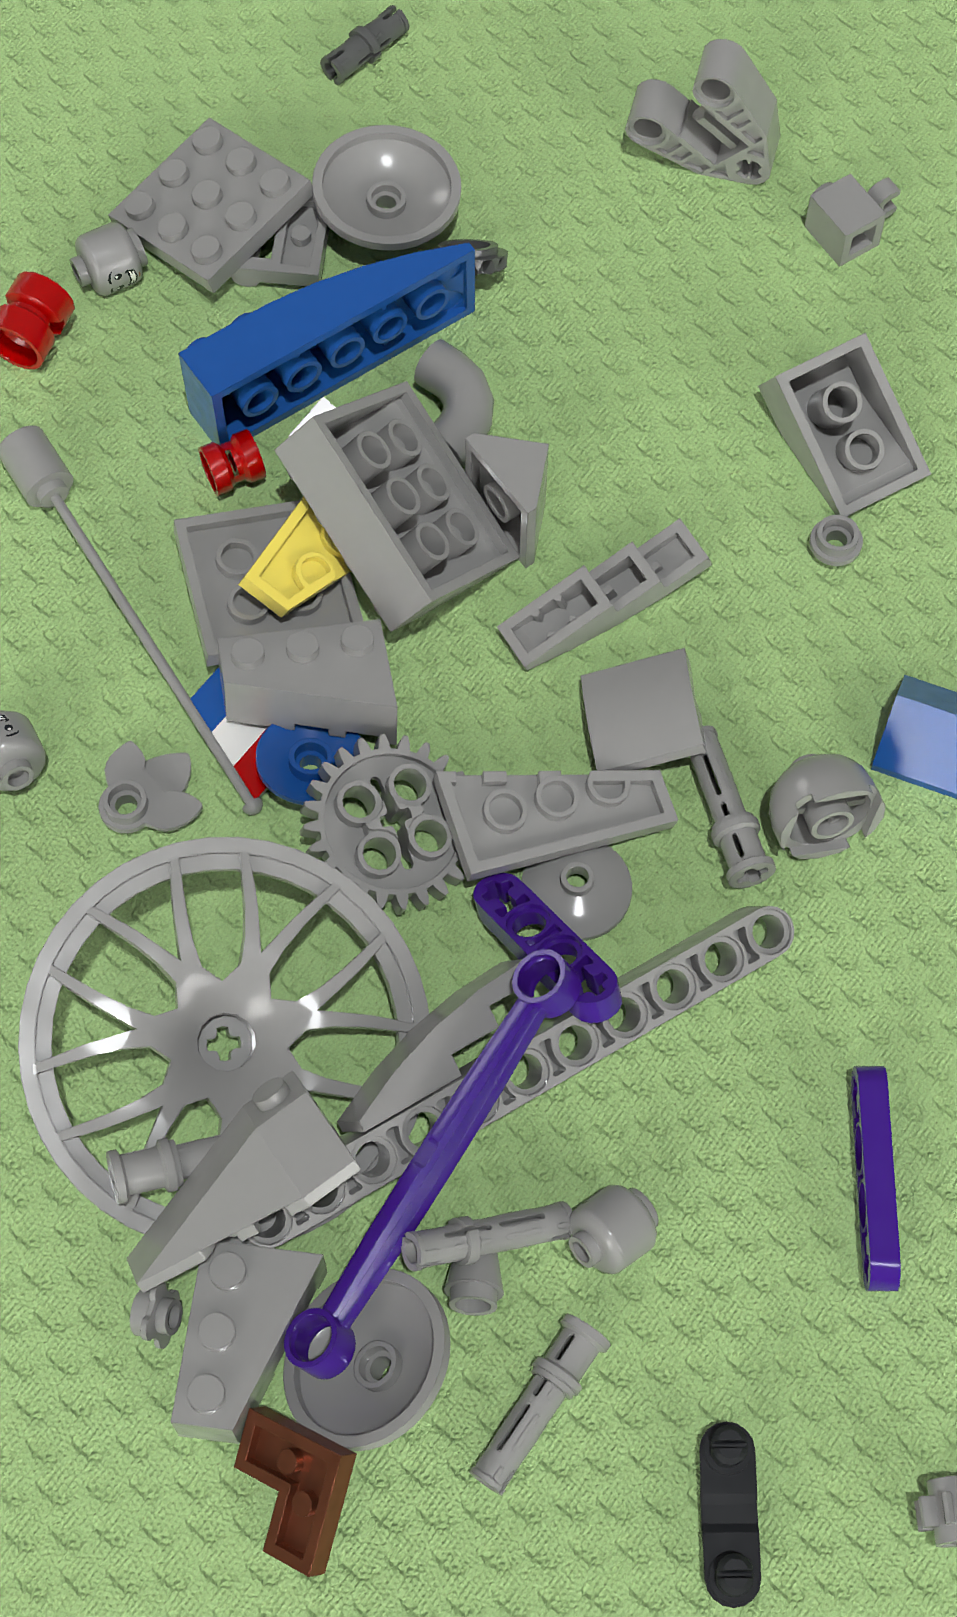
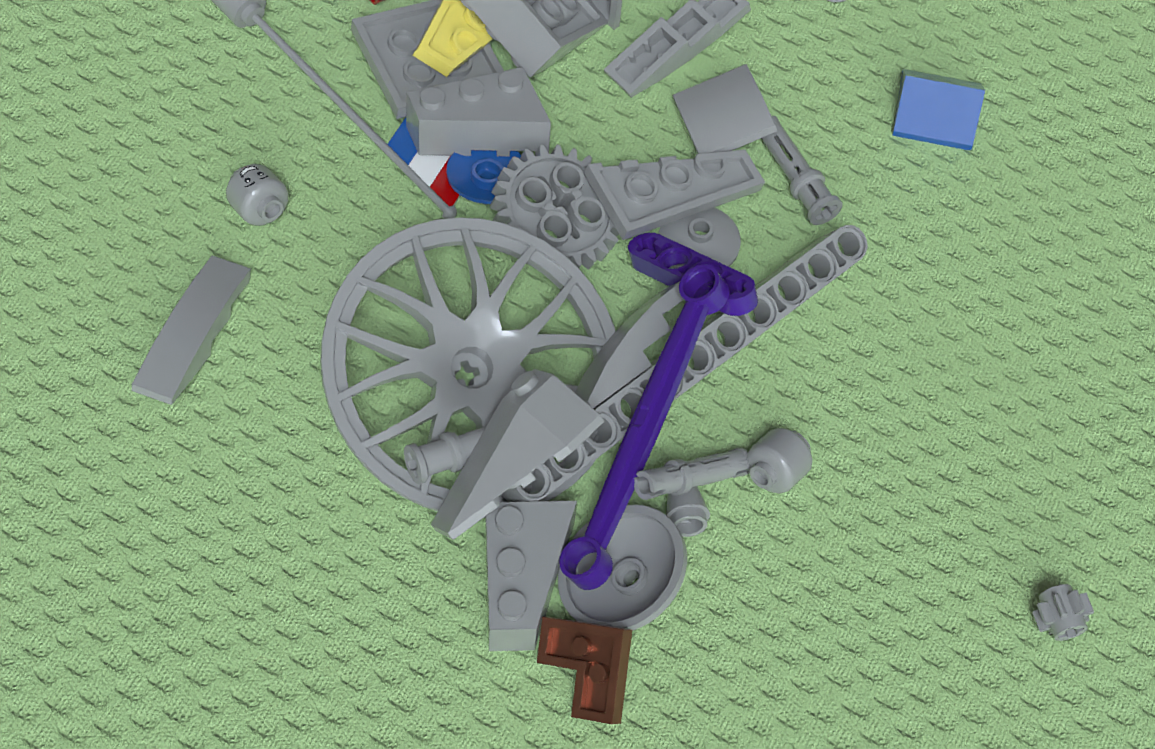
camera: 15 degrees left, 5 degrees down
(153, 786) = (371, 208): light grey plate -> none
(156, 1315) = (456, 565): light grey plate -> none
(554, 1380) = (758, 568): light grey pin -> none
(729, 1514) = (903, 639): black piece -> none
(822, 804) = (869, 156): light grey cylinder -> none
(875, 1179) = (958, 402): dark purple beam -> none

